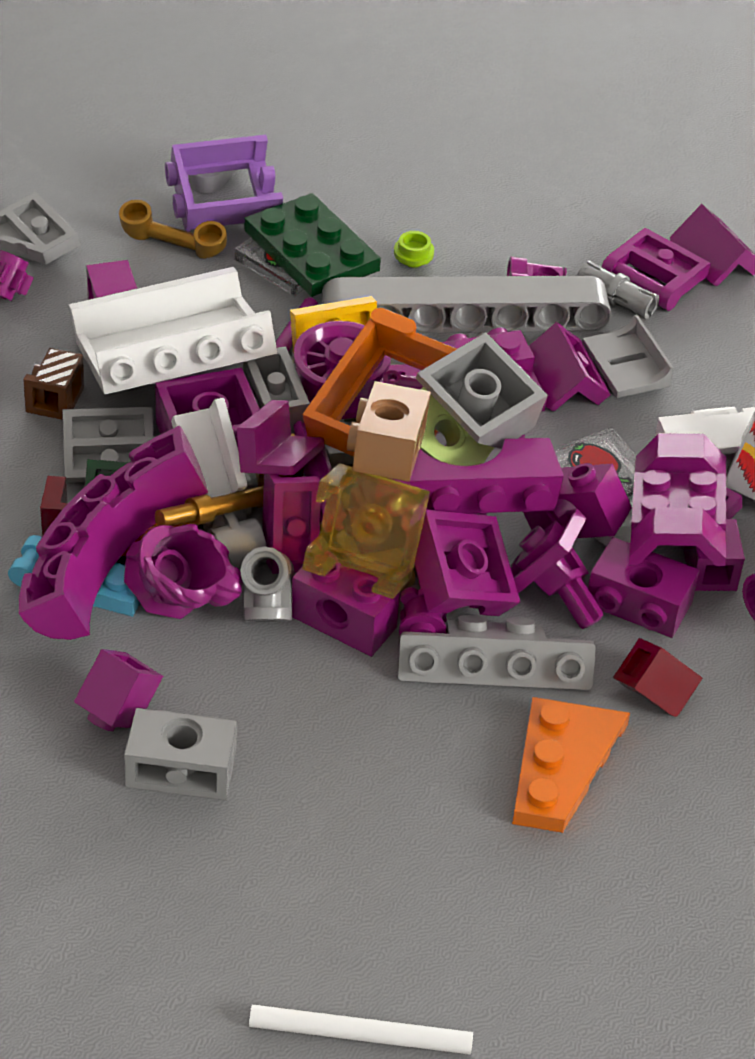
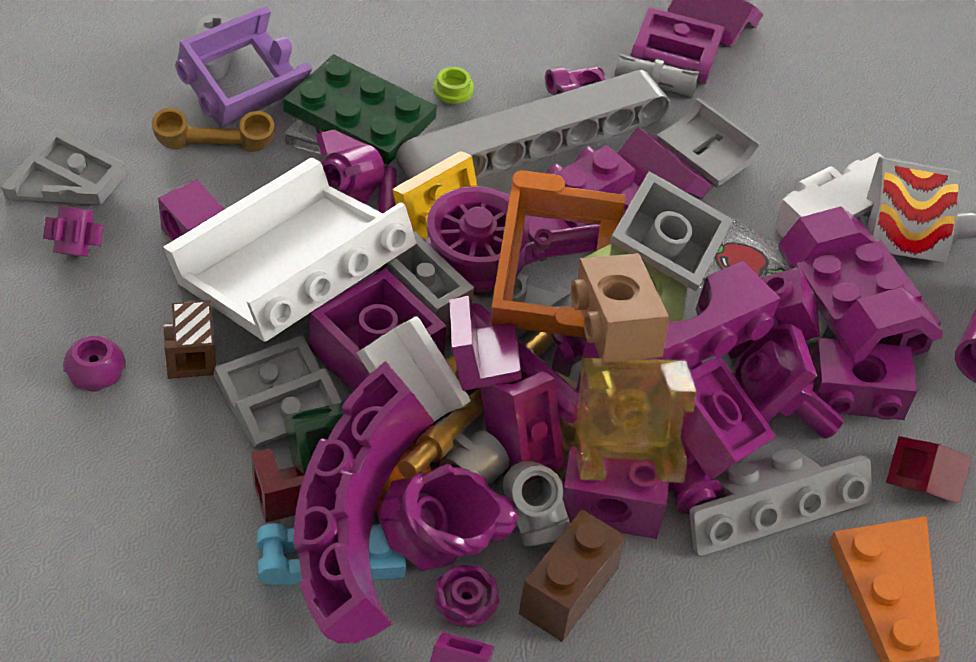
camera: 25 degrees left, 5 degrees up
(170, 640) = (470, 582): none -> magenta plate
(267, 651) = (571, 575): none -> reddish brown brick
(270, 285) = (351, 165): none -> magenta brick

